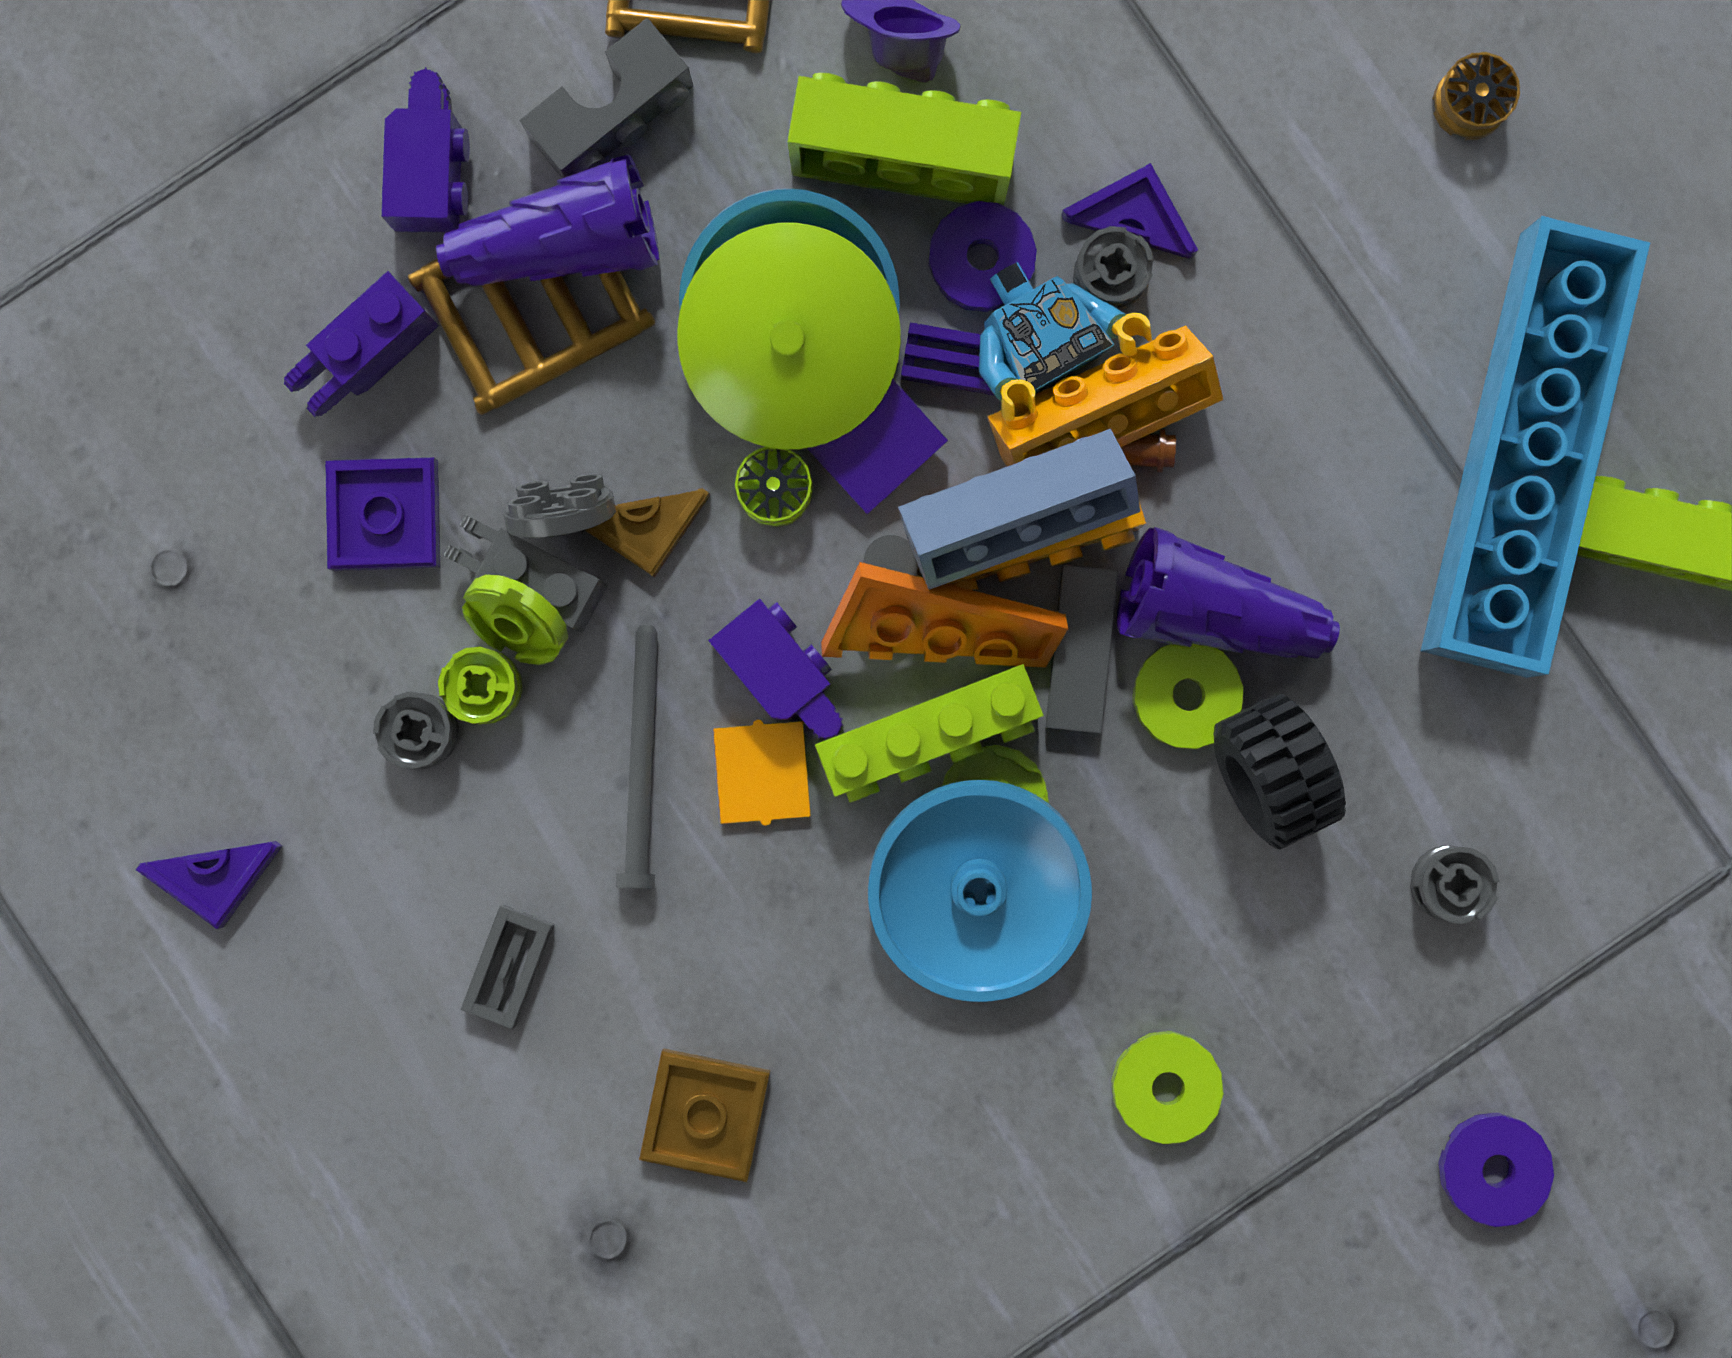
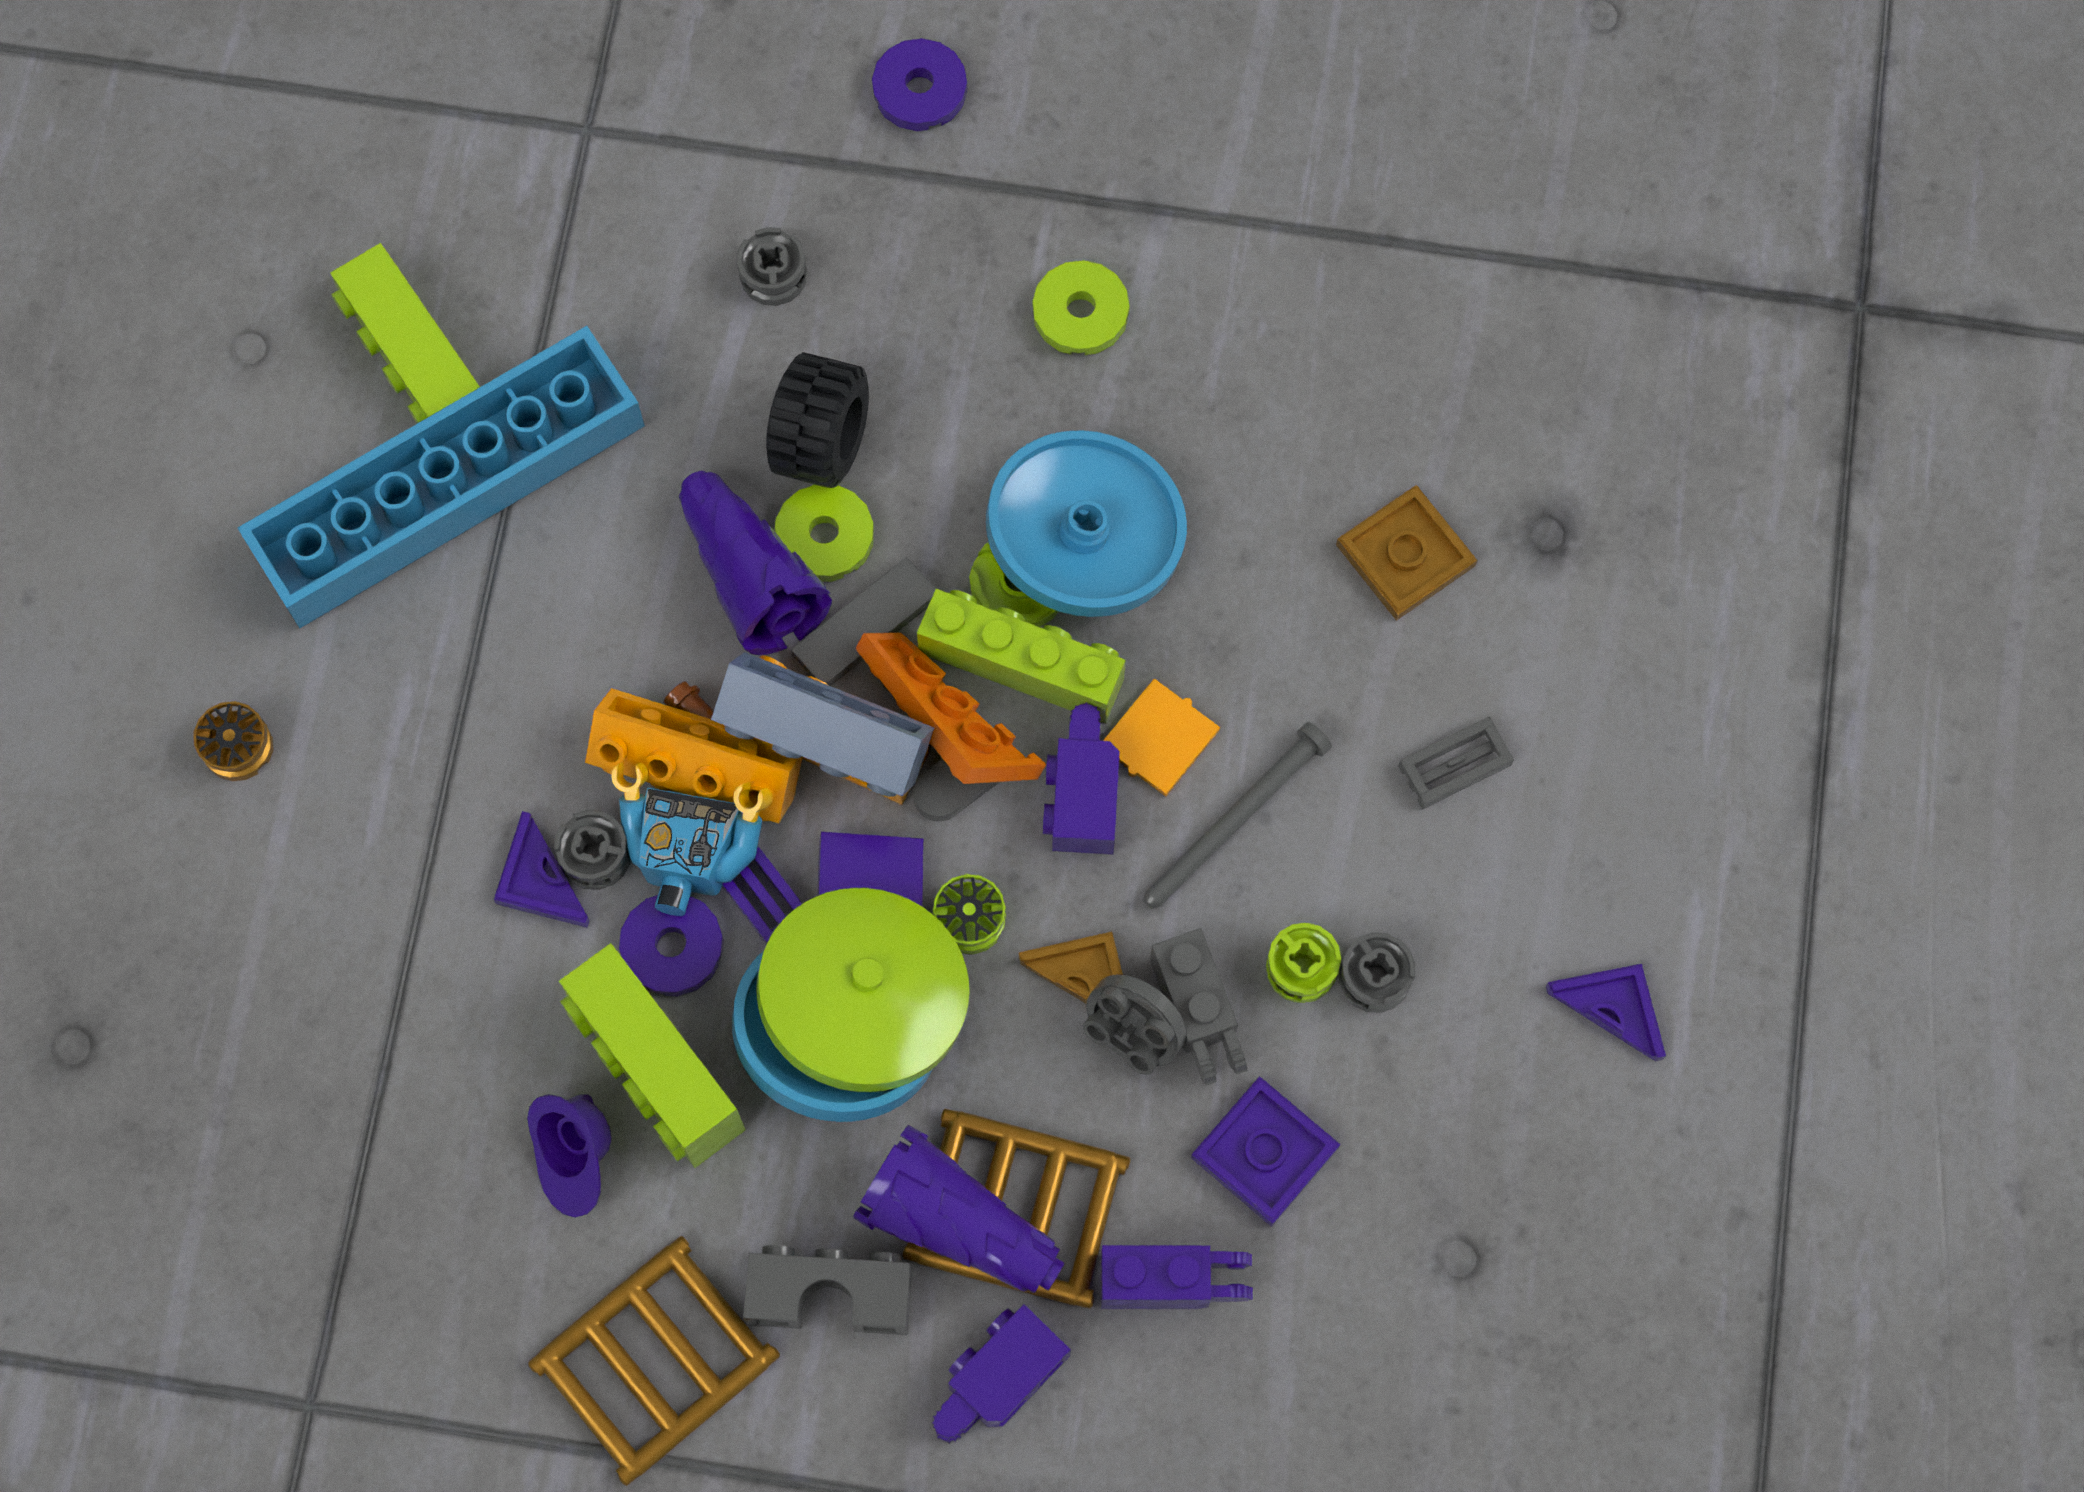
camera: 140 degrees left, 15 degrees down
(514, 617) = (1232, 972): lime tile -> none

